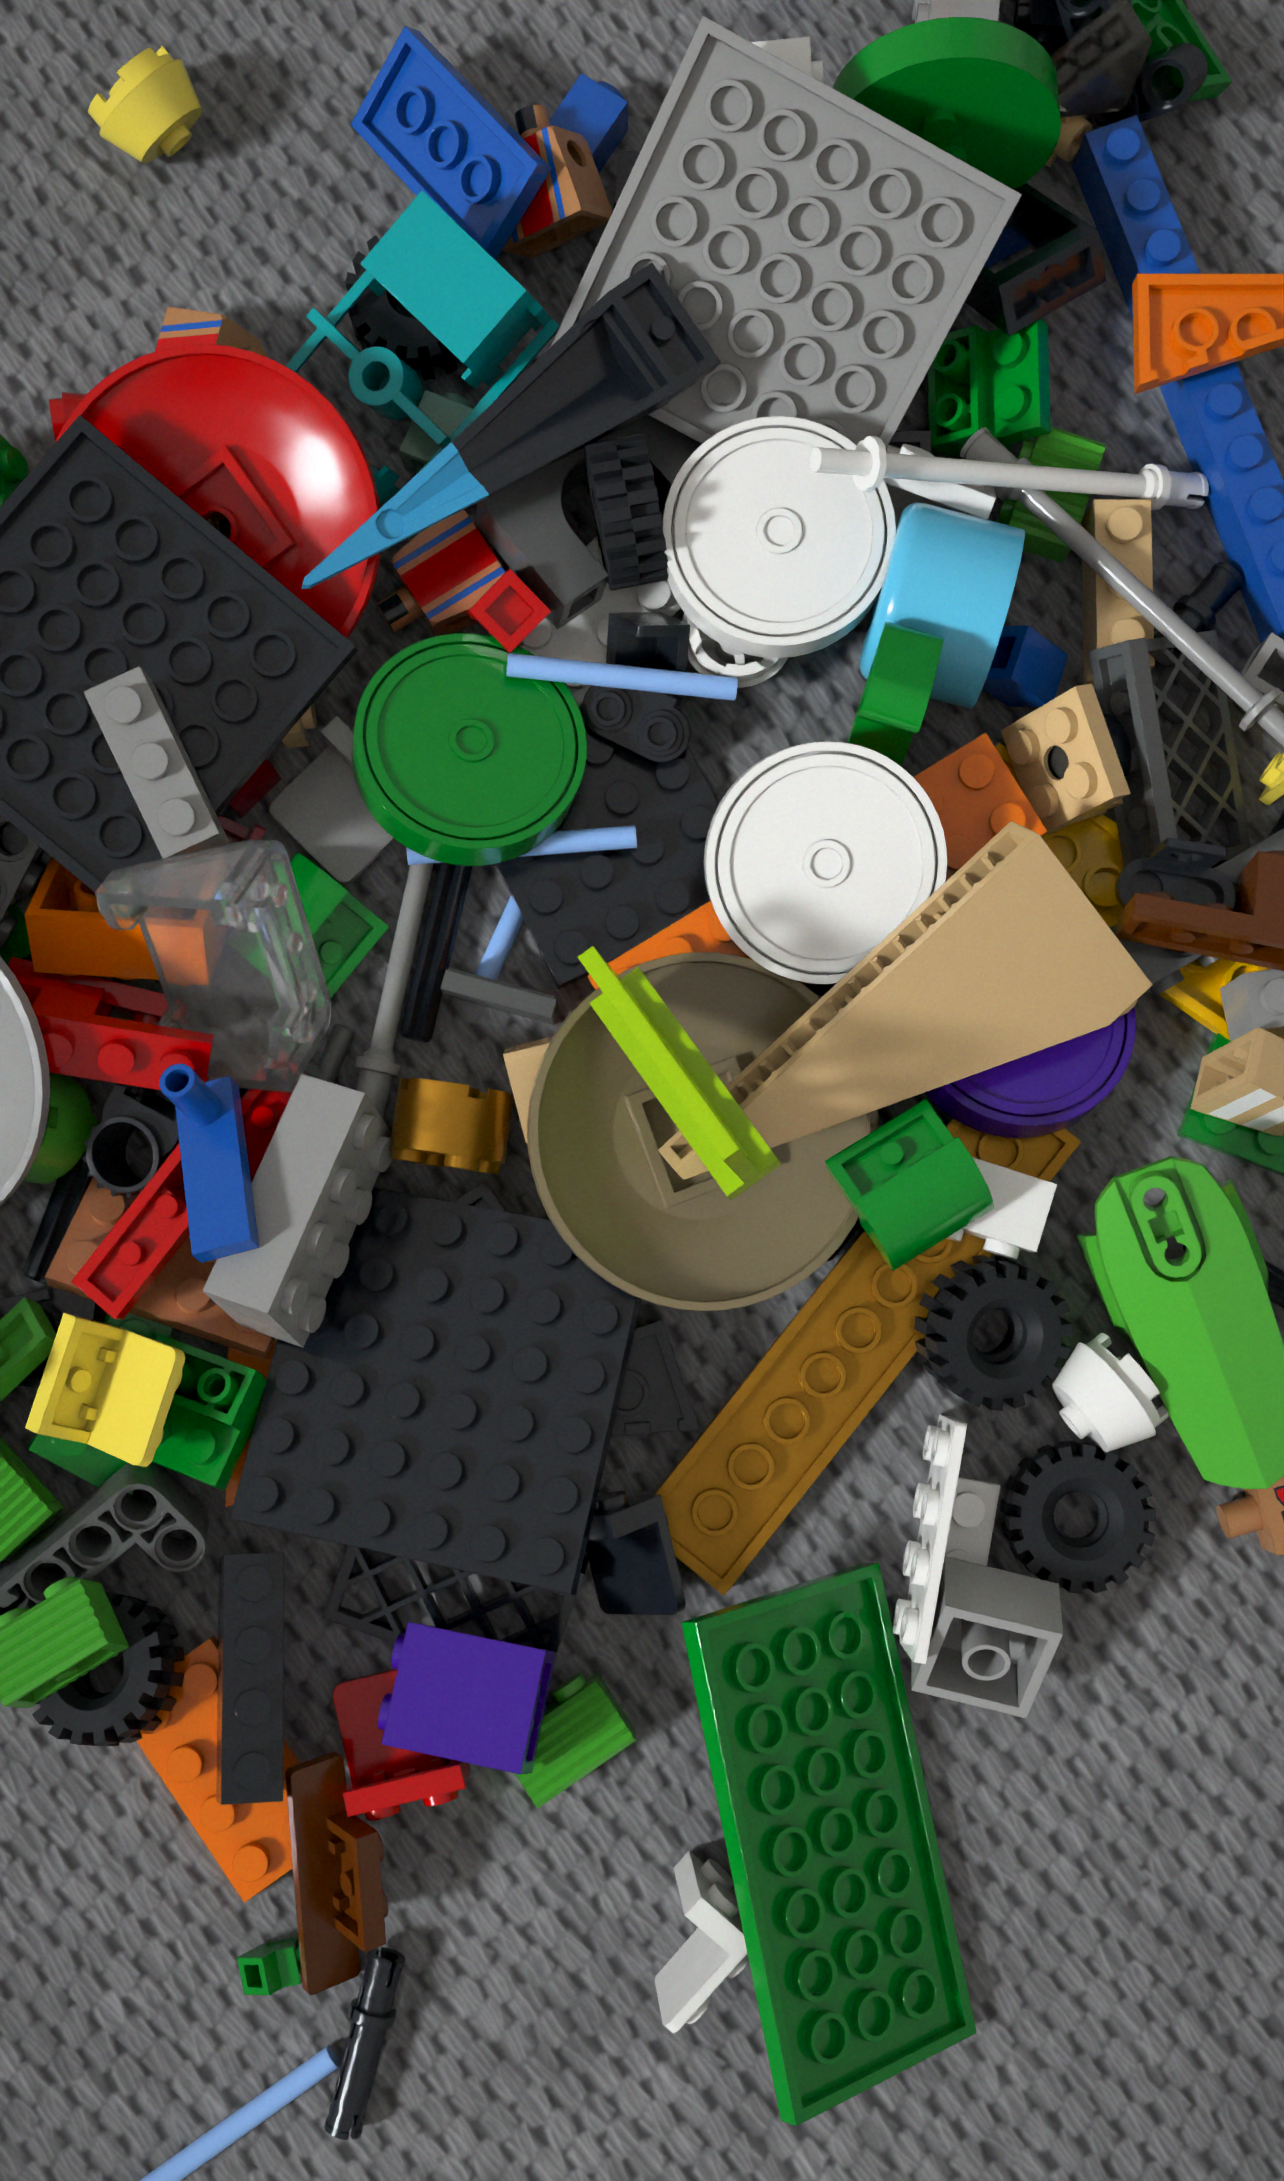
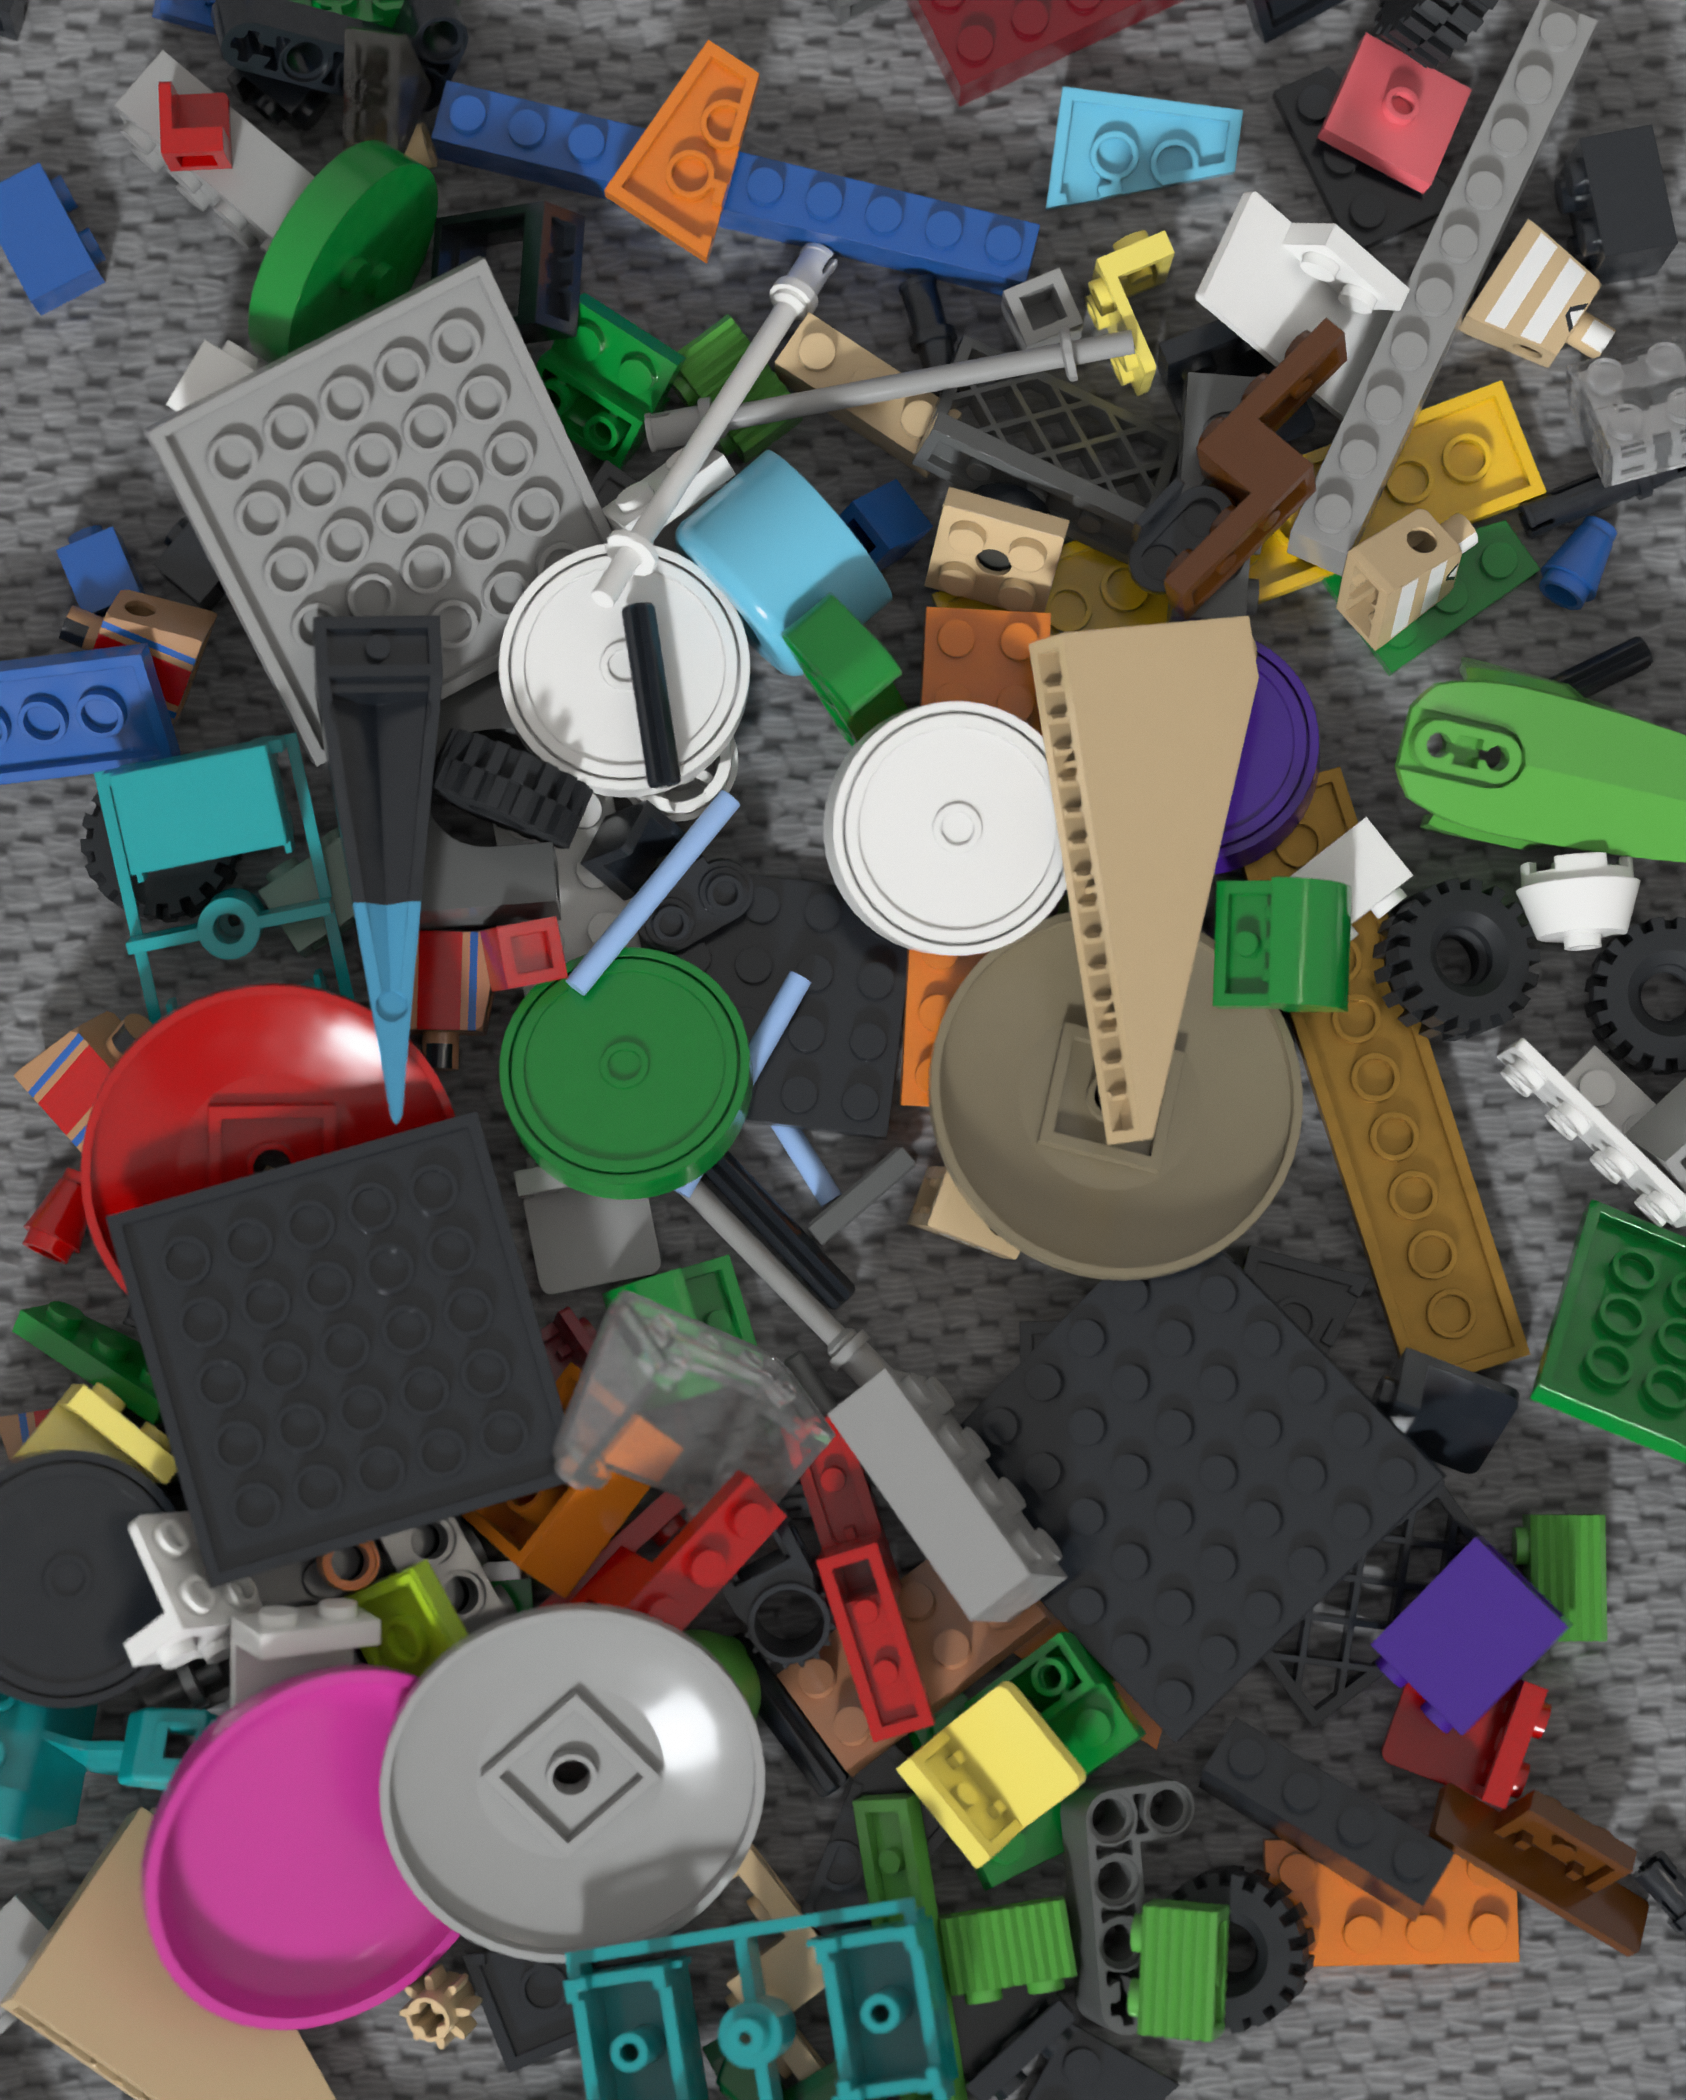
camera: 55 degrees left, 0 degrees up
(155, 764) = (478, 1357): light grey brick -> none
(213, 1163) = (862, 1541): blue piece -> none
(270, 1967) = (1591, 1975): green piece -> none
(451, 1125) = (950, 1314): pearl gold brick -> none
(680, 1077) = (1065, 1081): lime fence -> none
(769, 562) = (651, 695): none -> black axle

